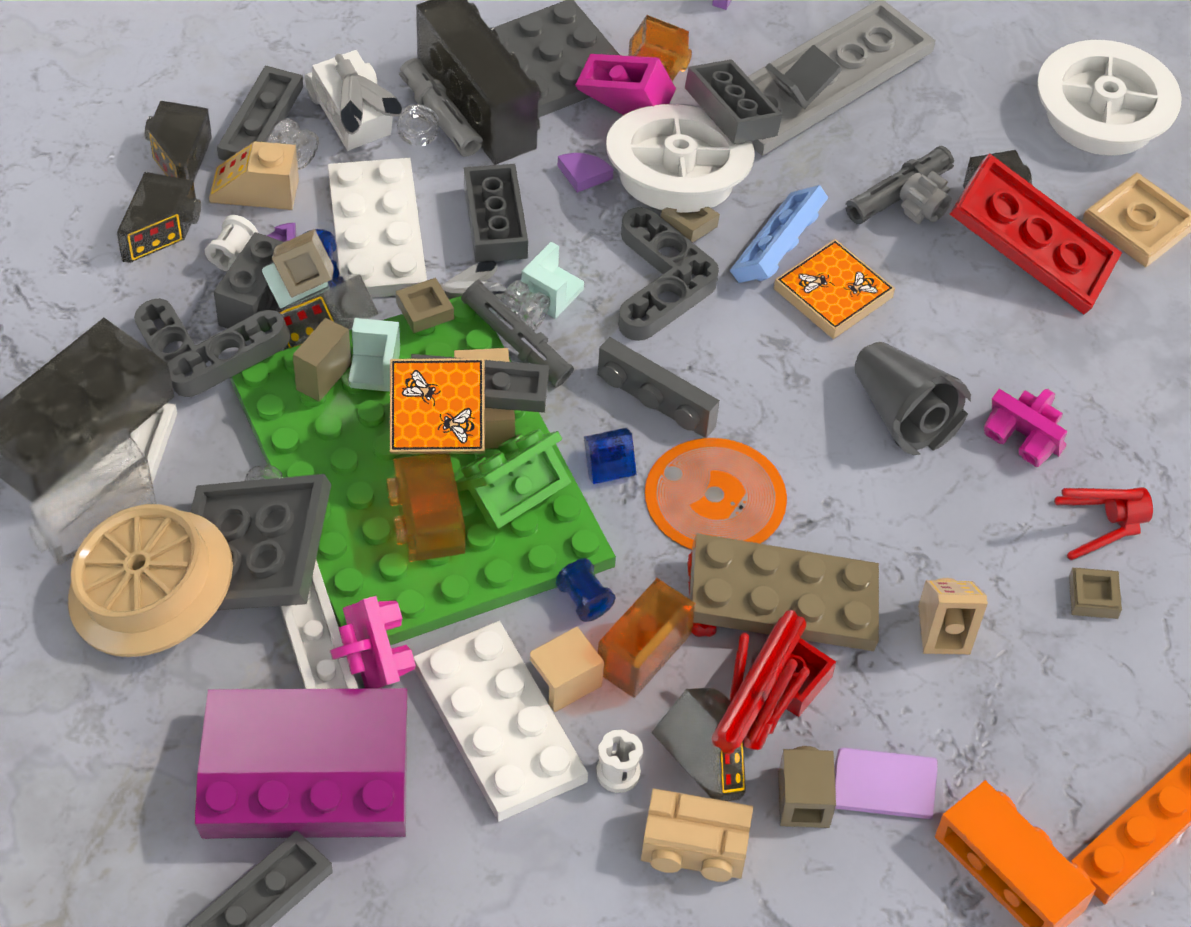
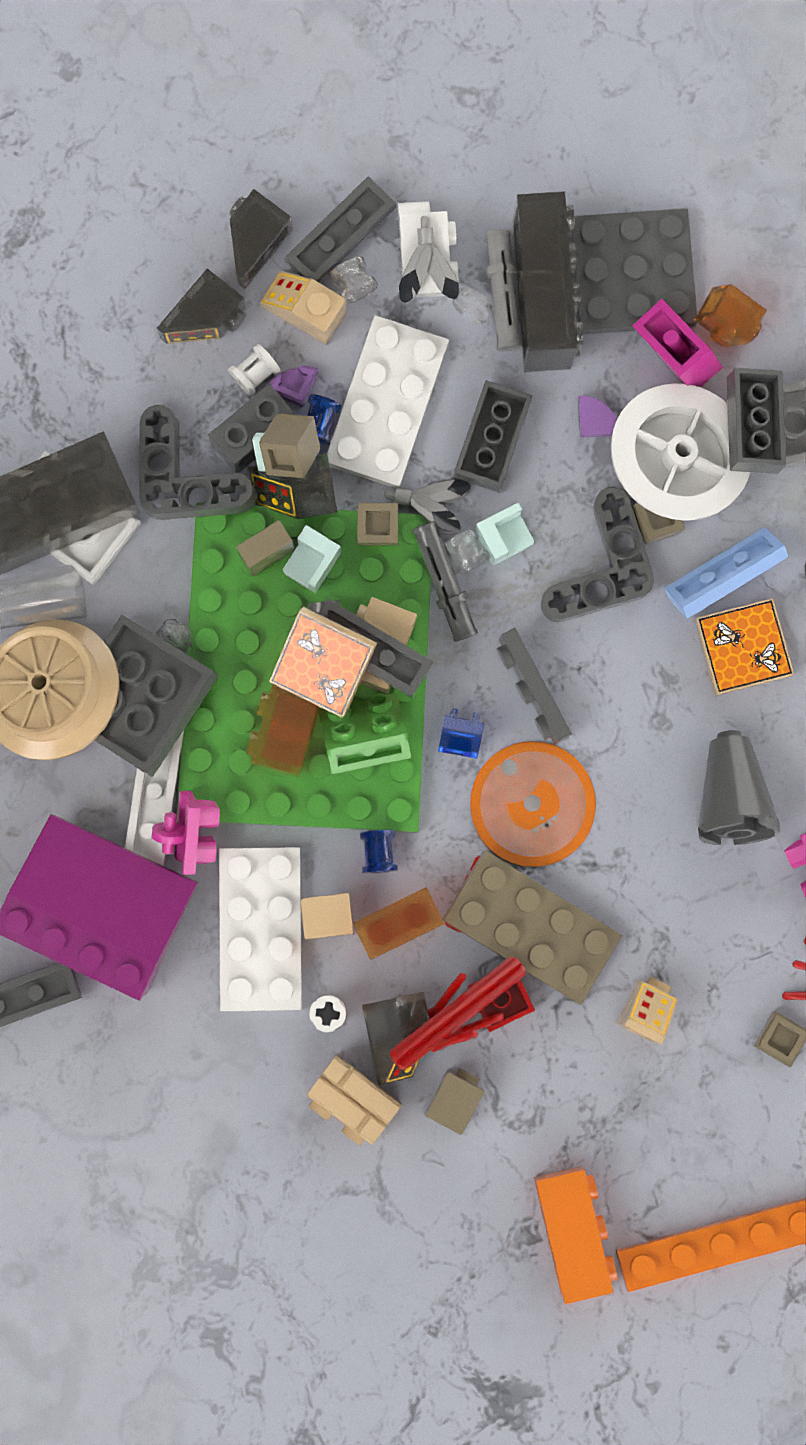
camera: 25 degrees right, 30 degrees up
(885, 783) = (516, 1124): lavender slope -> none

